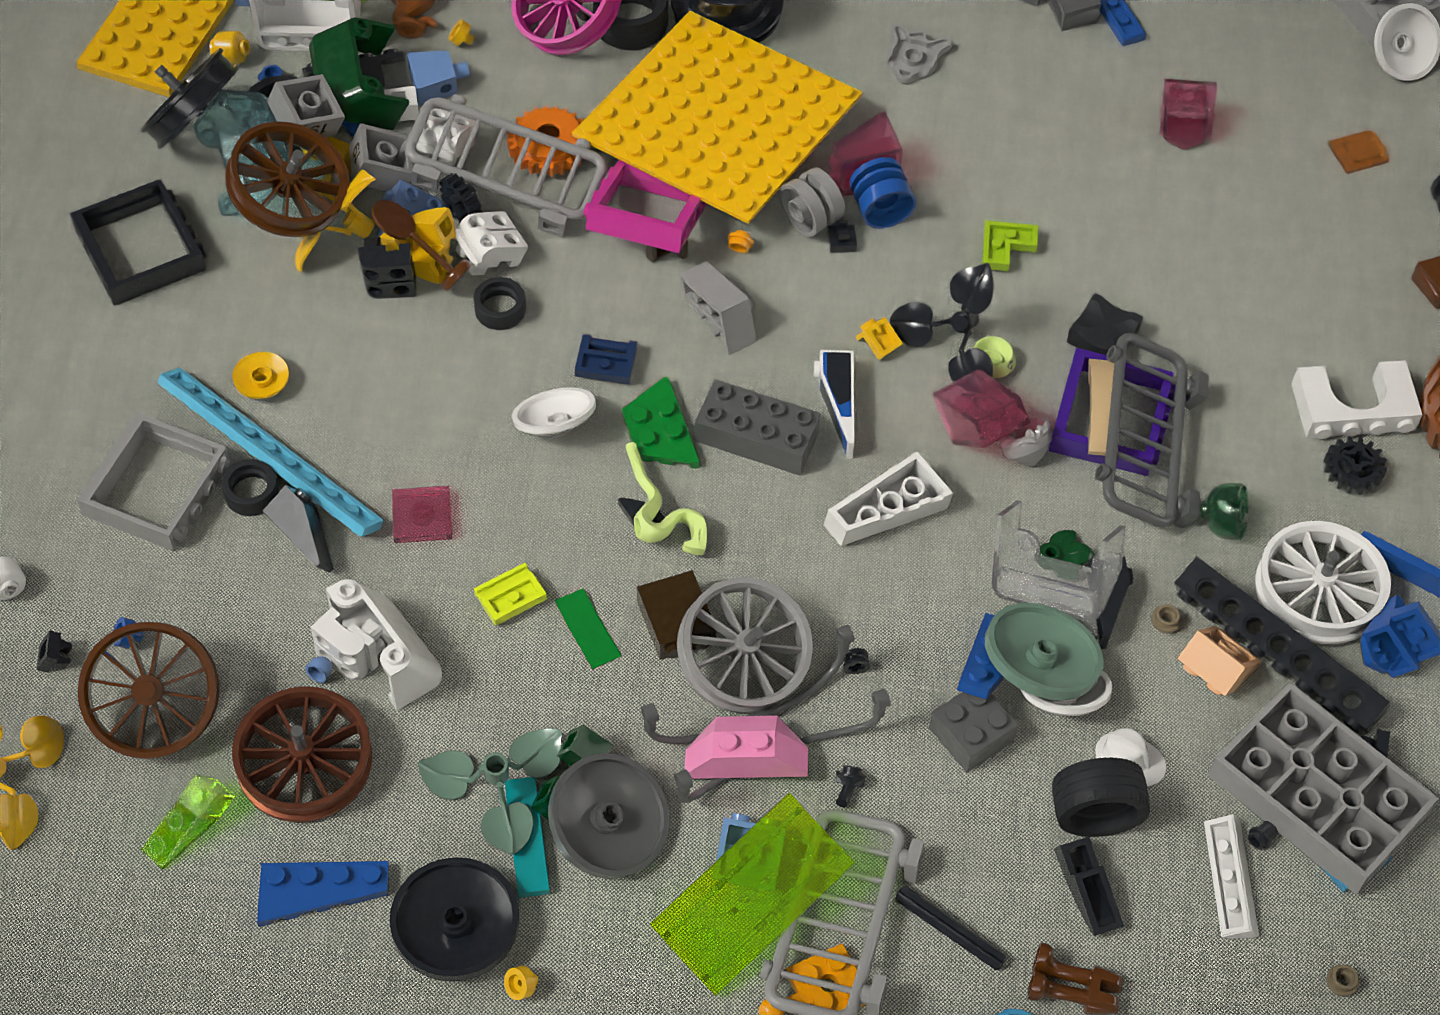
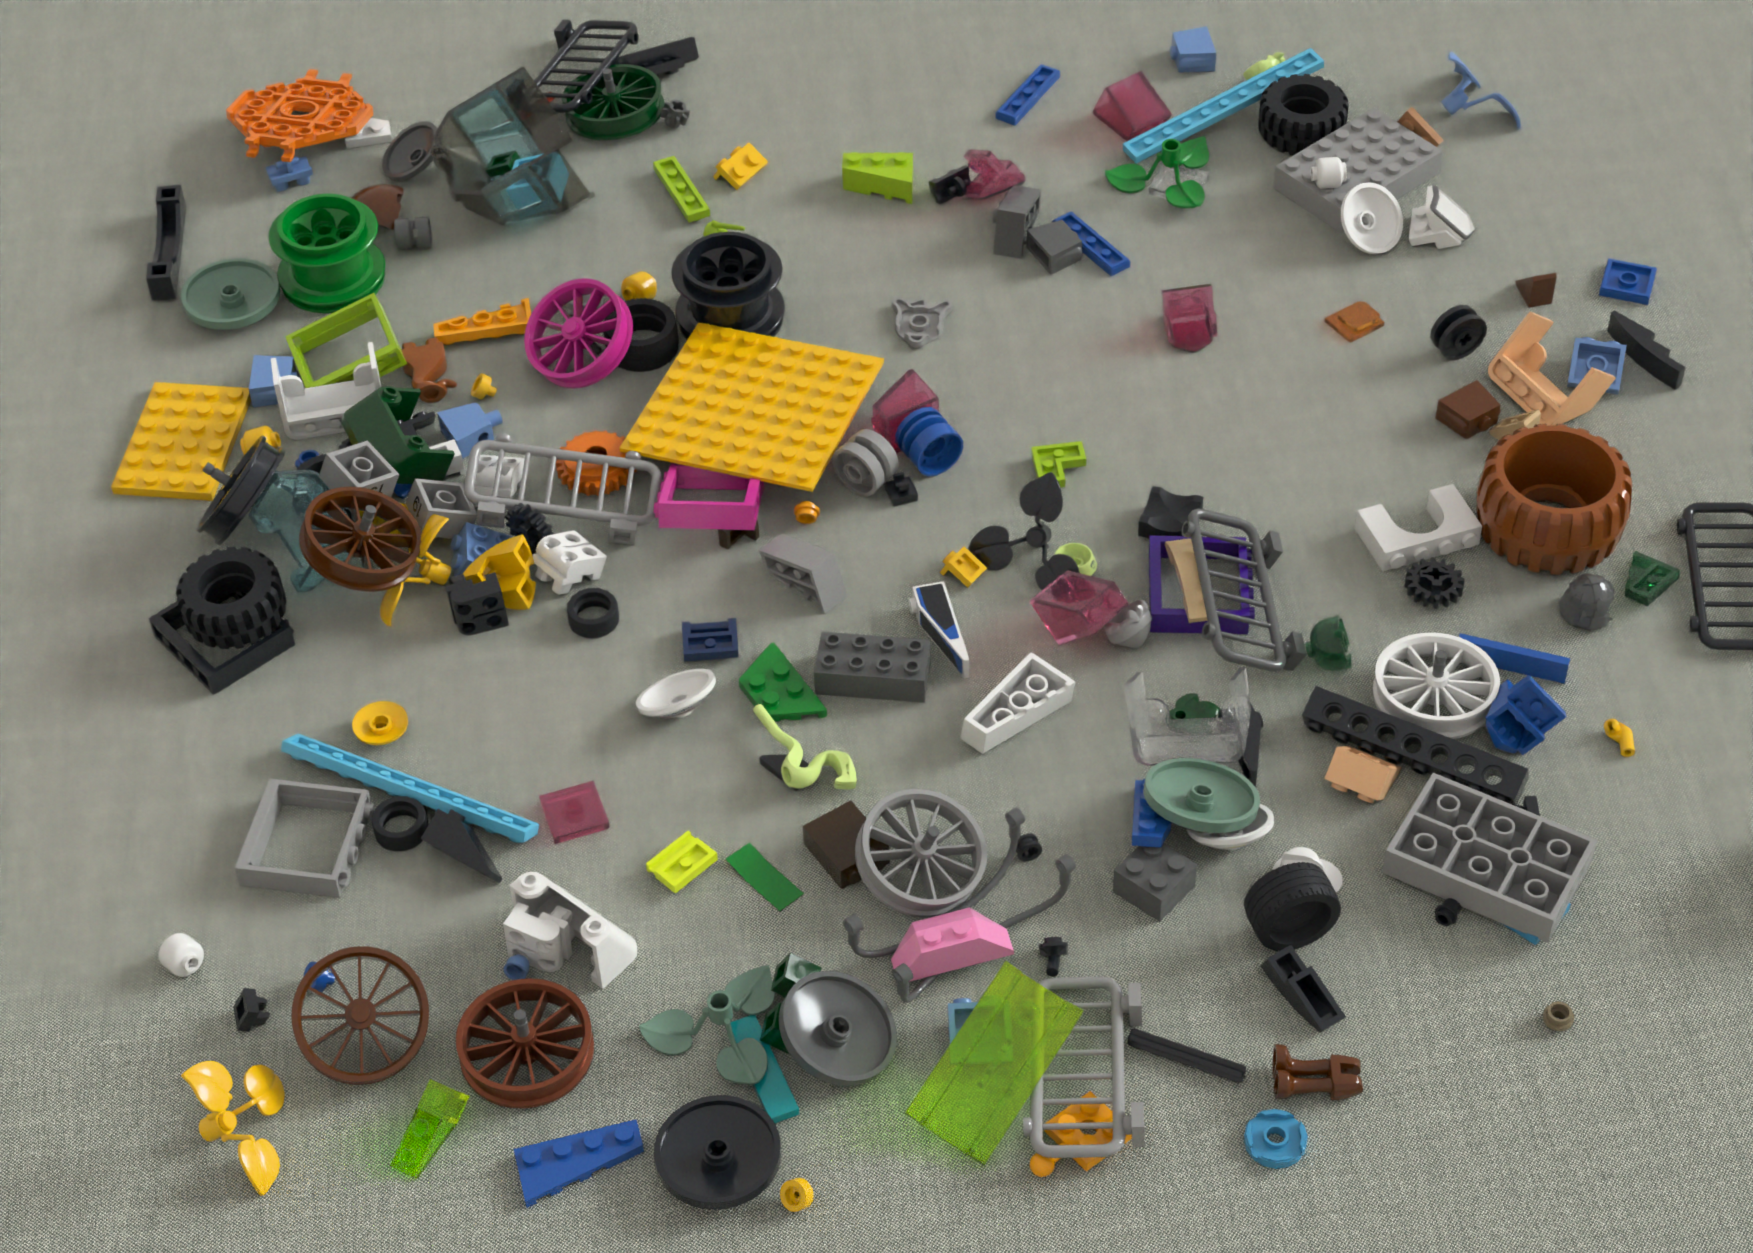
camera: 10 degrees left, 10 degrees down
(143, 186) = (236, 621): none -> black tyre
(399, 224) = (481, 559): reddish brown piece -> none
(1166, 611) = (1303, 749): dark tan plate -> none
(1231, 878) = (1430, 955): white slope -> none

